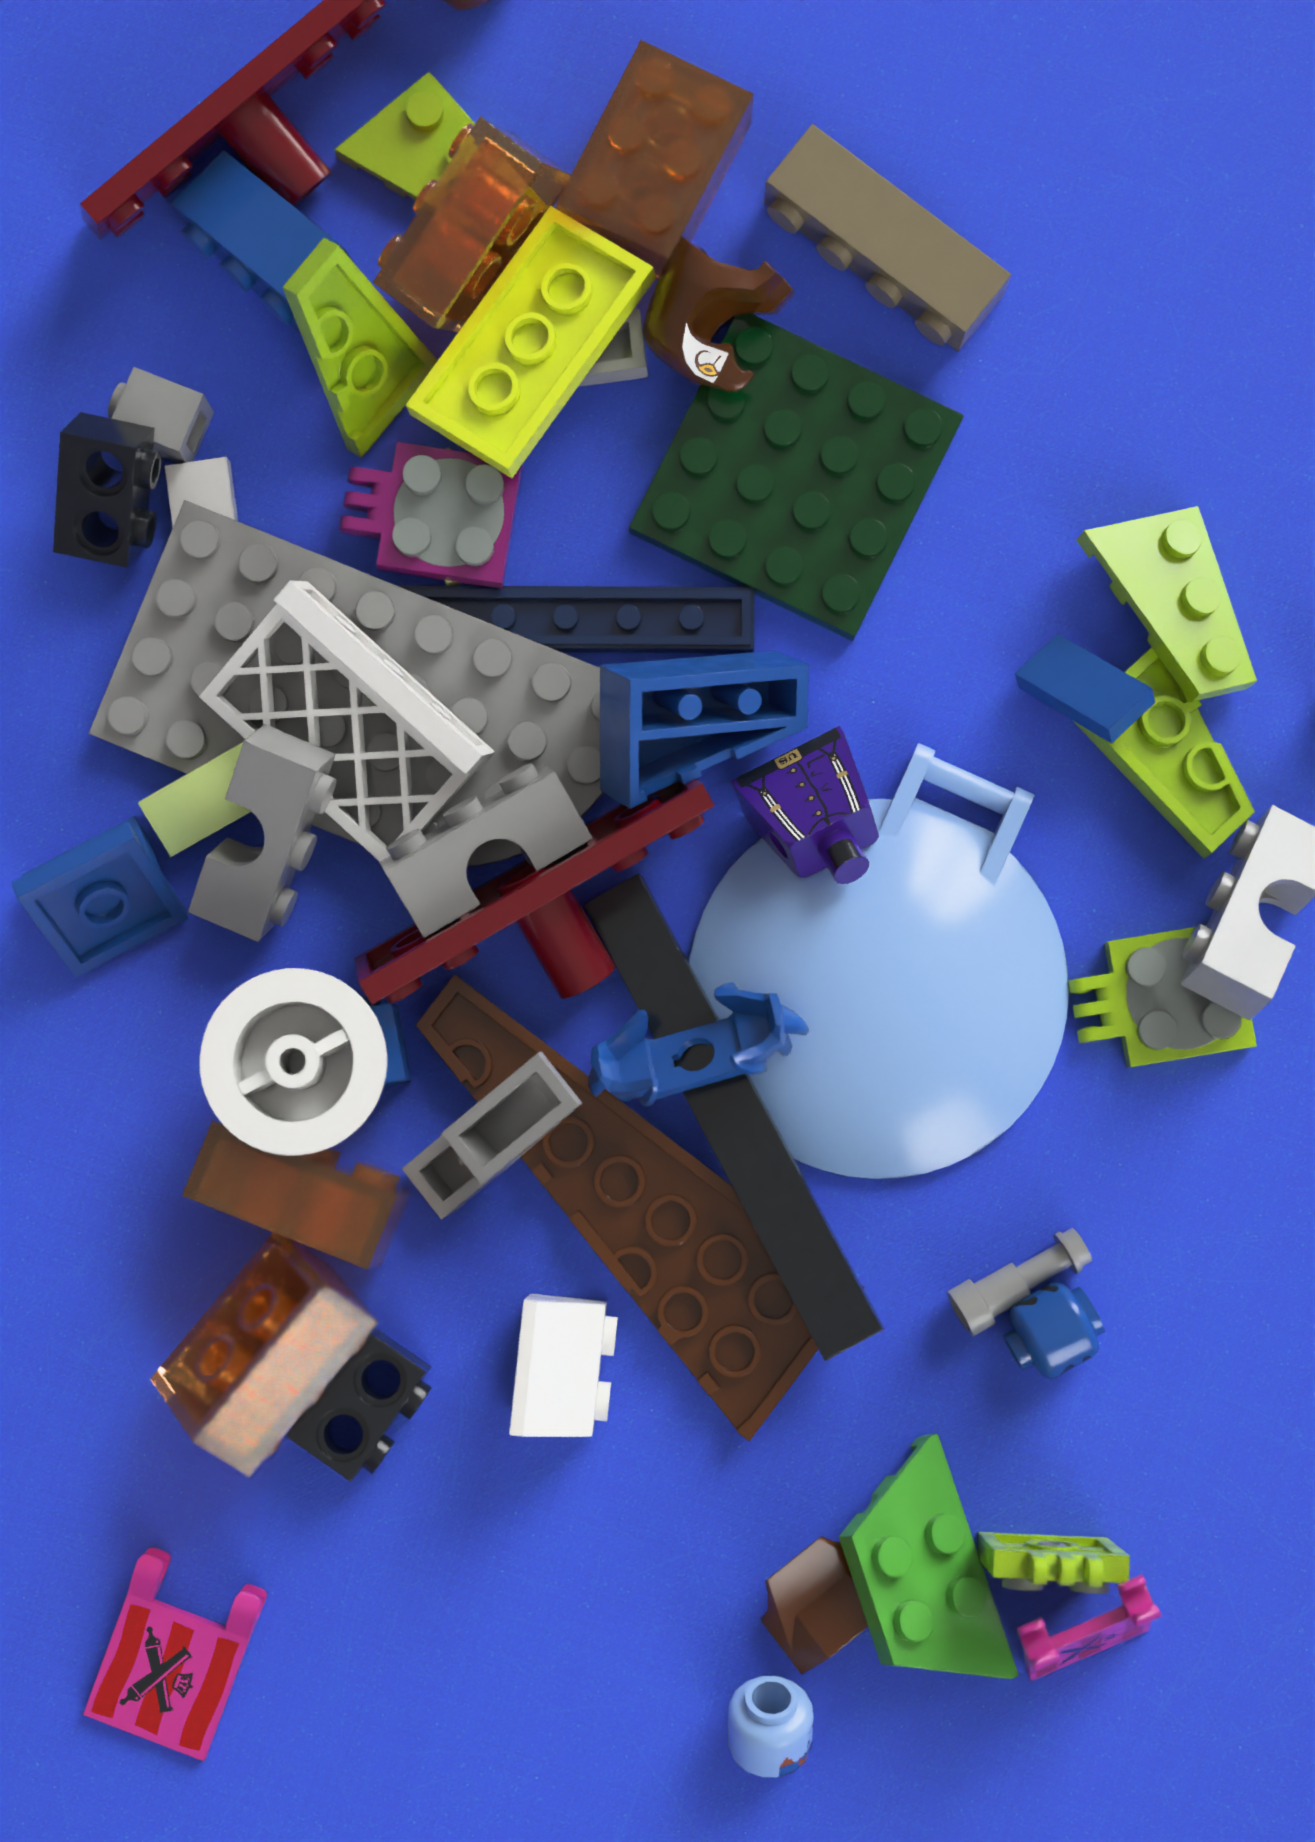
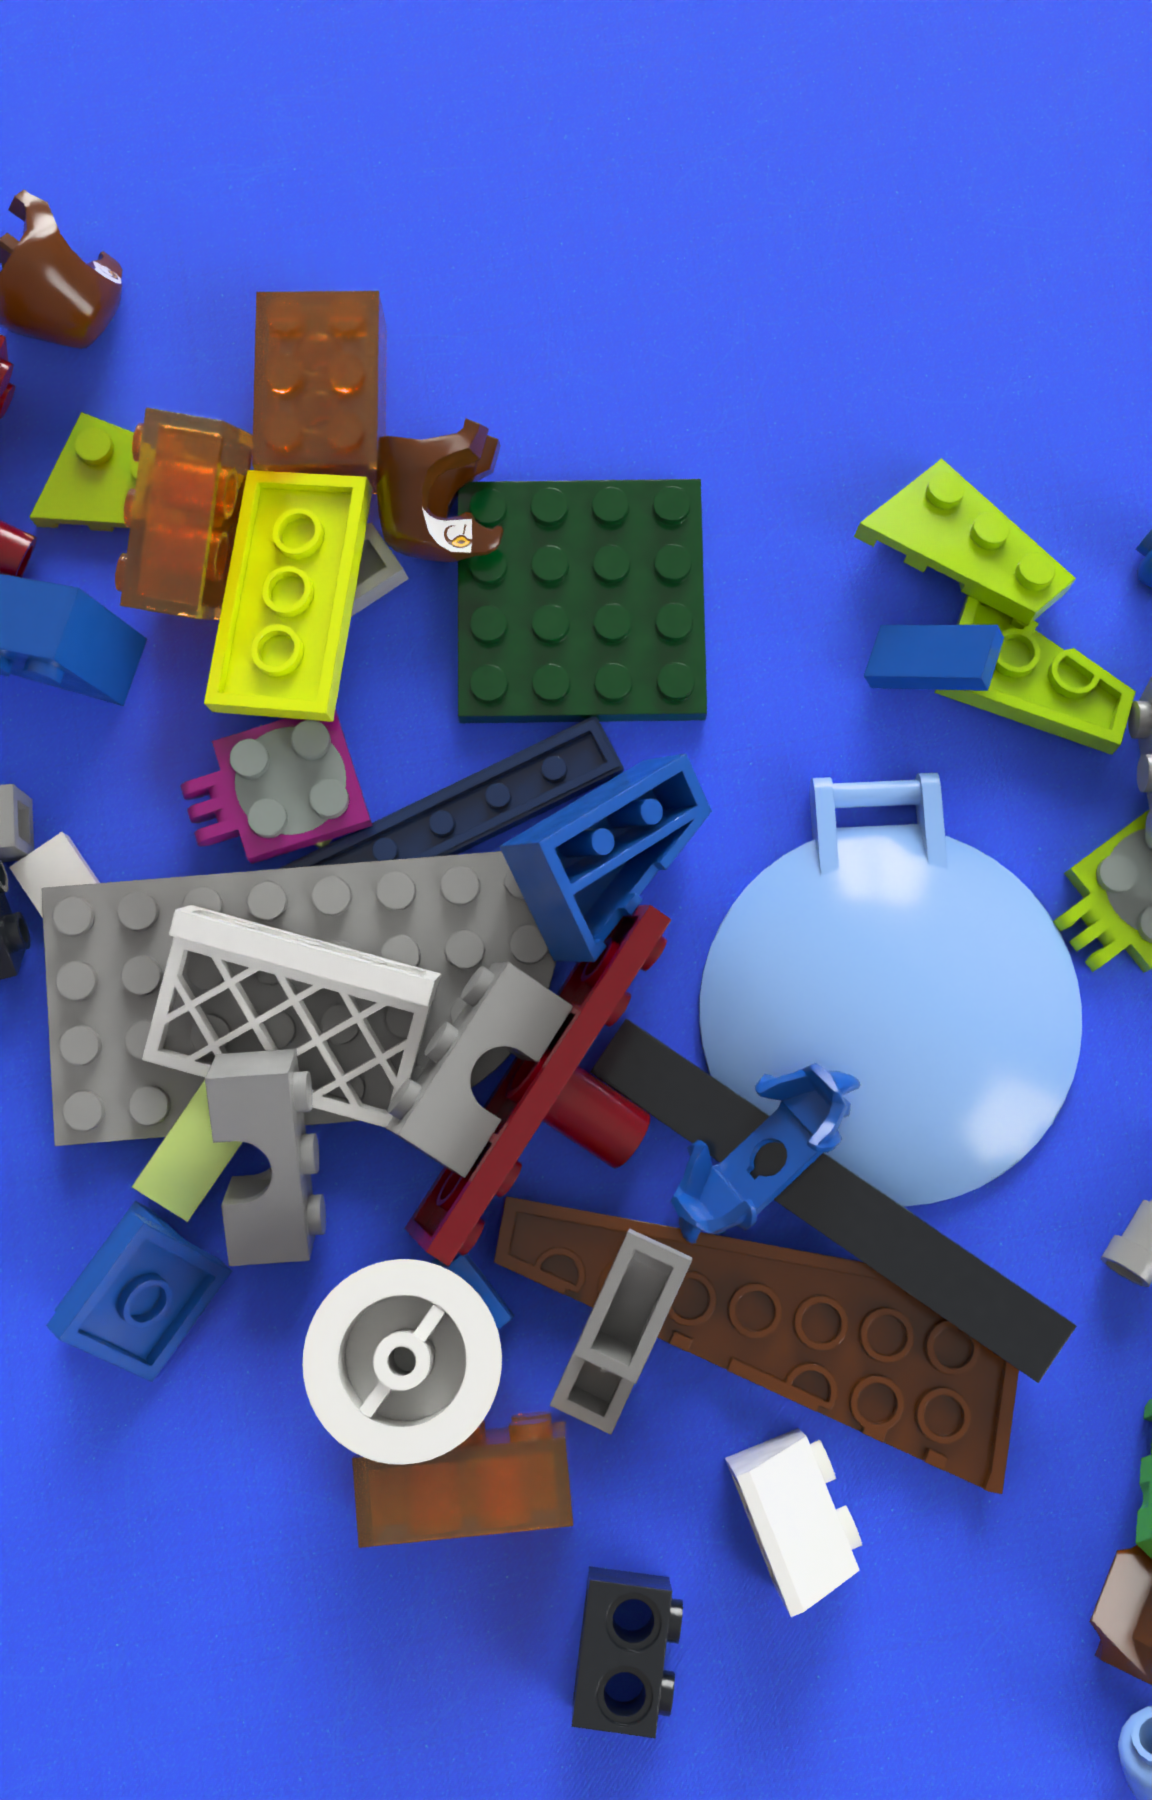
camera: 30 degrees left, 5 degrees down
(263, 1353) = (510, 1661): clear orange brick -> none
(356, 343) = (131, 670): lime wing -> none
(812, 808) = (753, 881): dark purple torso -> none
(884, 239) = (553, 363): dark tan brick -> none

